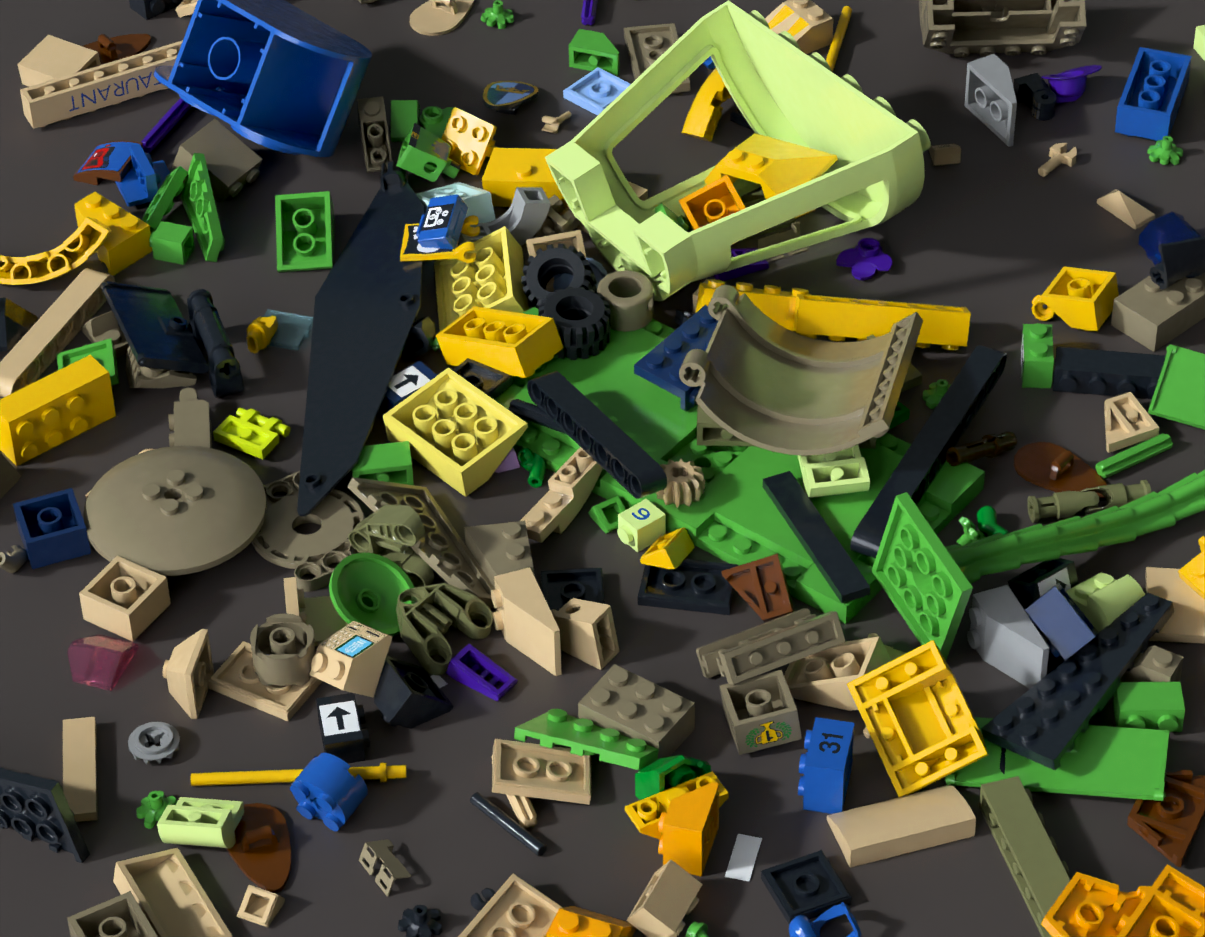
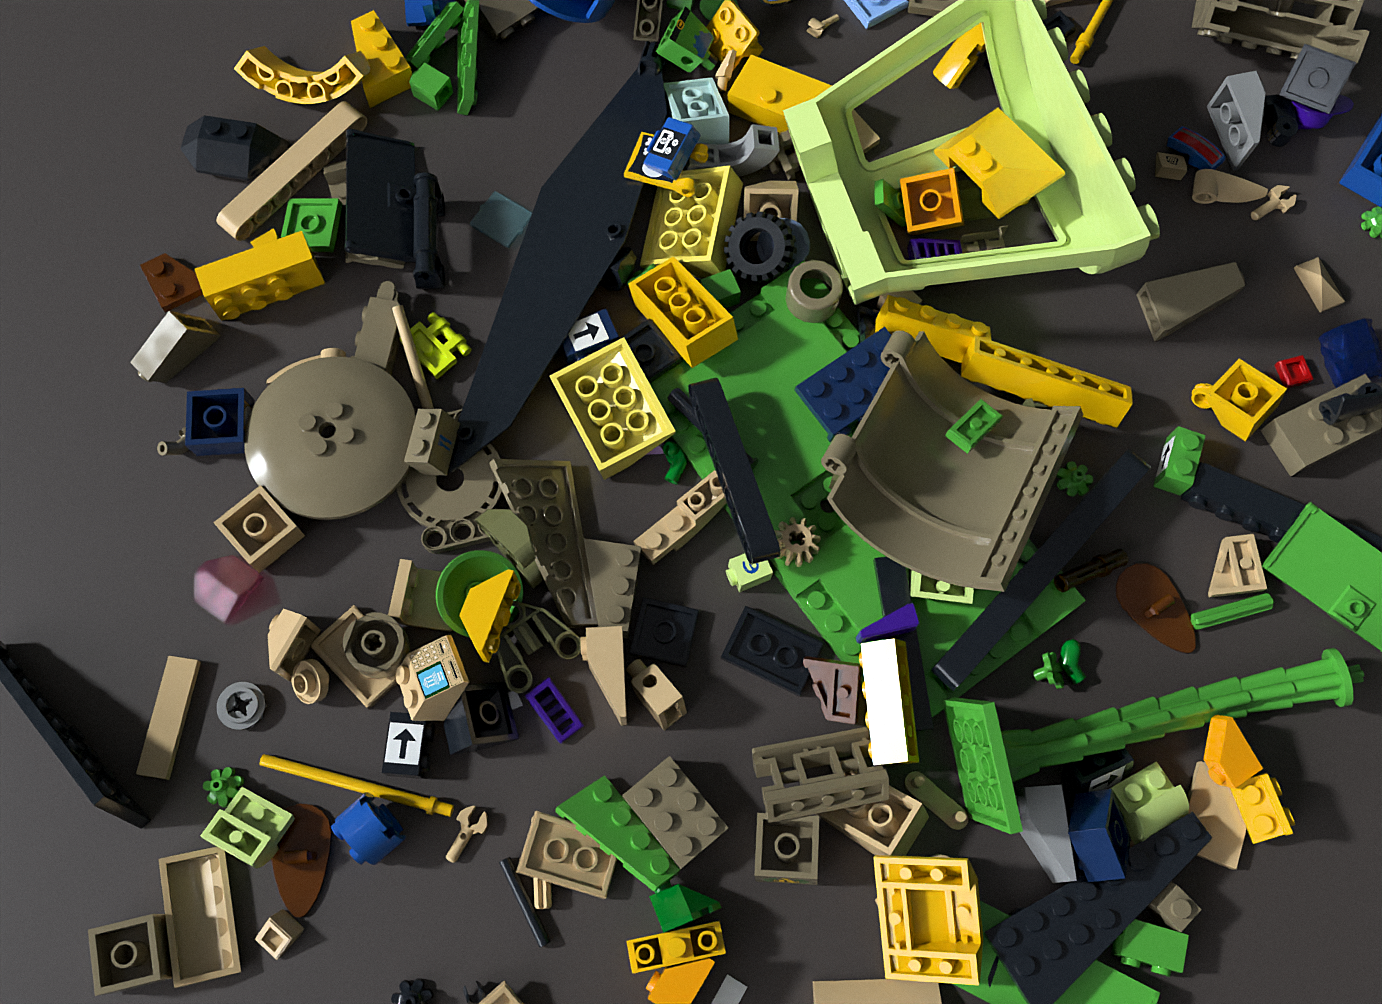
camera: 10 degrees right, 30 degrees up
(221, 702) = (310, 681): none -> tan plate
(232, 437) = (412, 357): none -> tan bar
(260, 333) = (475, 225): yellow piece -> none
(281, 489) = (432, 442): none -> dark tan brick
(304, 231) = (552, 109): bright green slope -> none
(382, 849) = (405, 927): dark tan piece -> none
(386, 463) = (539, 426): bright green brick -> none
(389, 591) = (489, 610): none -> yellow slope
(427, 784) = (466, 832): none -> tan bar
(471, 171) = (725, 71): none -> tan bar
(580, 319) = (764, 290): black tyre -> none
(606, 513) = (726, 542): bright green slope -> none
(669, 550) = (764, 609): yellow slope -> none
(795, 515) = (897, 623): none -> dark purple slope
(816, 570) = (888, 702): none -> brick
(820, 352) = (973, 426): none -> bright green plate
(826, 765) = (828, 941): blue brick -> none
(865, 259) = (1055, 288): dark purple plate -> none
(968, 134) = (1201, 151): none -> slope
(991, 155) = (1219, 186): none -> tan piece
(999, 239) = (1186, 297): none -> dark tan slope
(1054, 48) = (1317, 78): none -> black tile
(1070, 503) = (1155, 659): olive piece -> none
(1127, 274) = (1293, 371): none -> red tile
(1166, 542) = (1229, 754): none -> light orange slope

